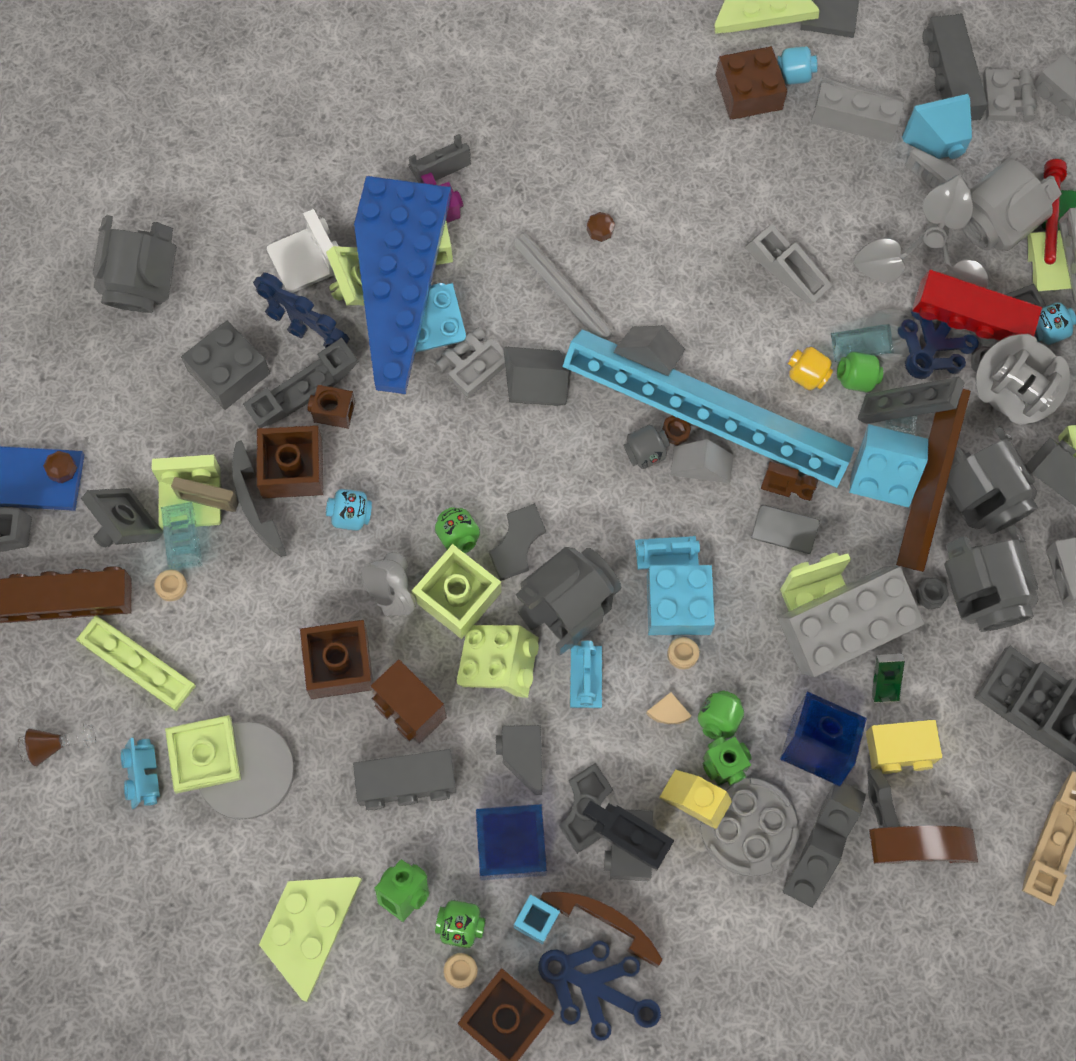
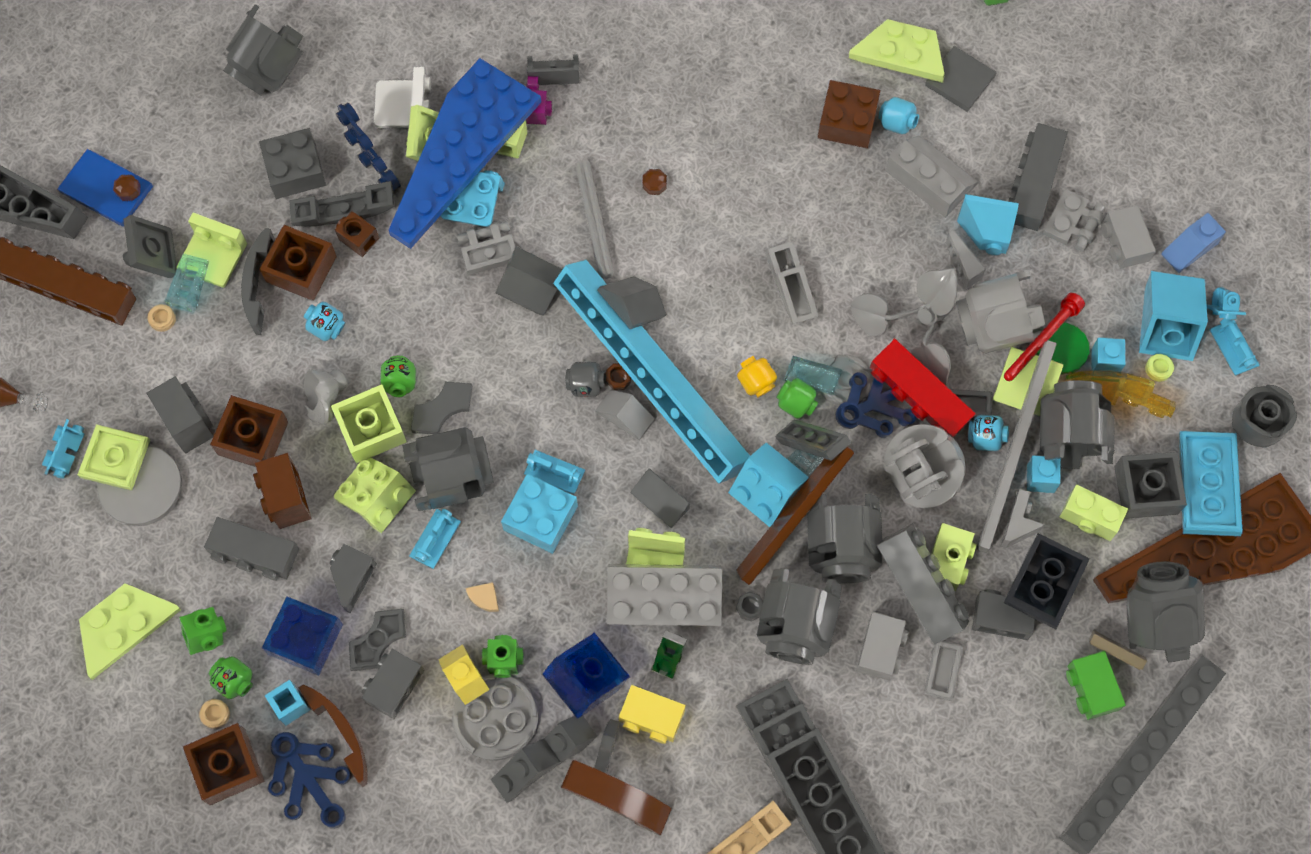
camera: 30 degrees right, 0 degrees up
(136, 662) = (104, 365): yellowish green tile -> none
(205, 494) = (219, 258): dark tan tile -> none
(253, 673) = (181, 414): none -> dark grey brick
(629, 833) = (390, 672): black hinge -> none
(683, 653) = (521, 557): tan tile -> none
(721, 715) = (520, 619): bright green head -> none
(785, 480) = (681, 459): reddish brown plate -> none

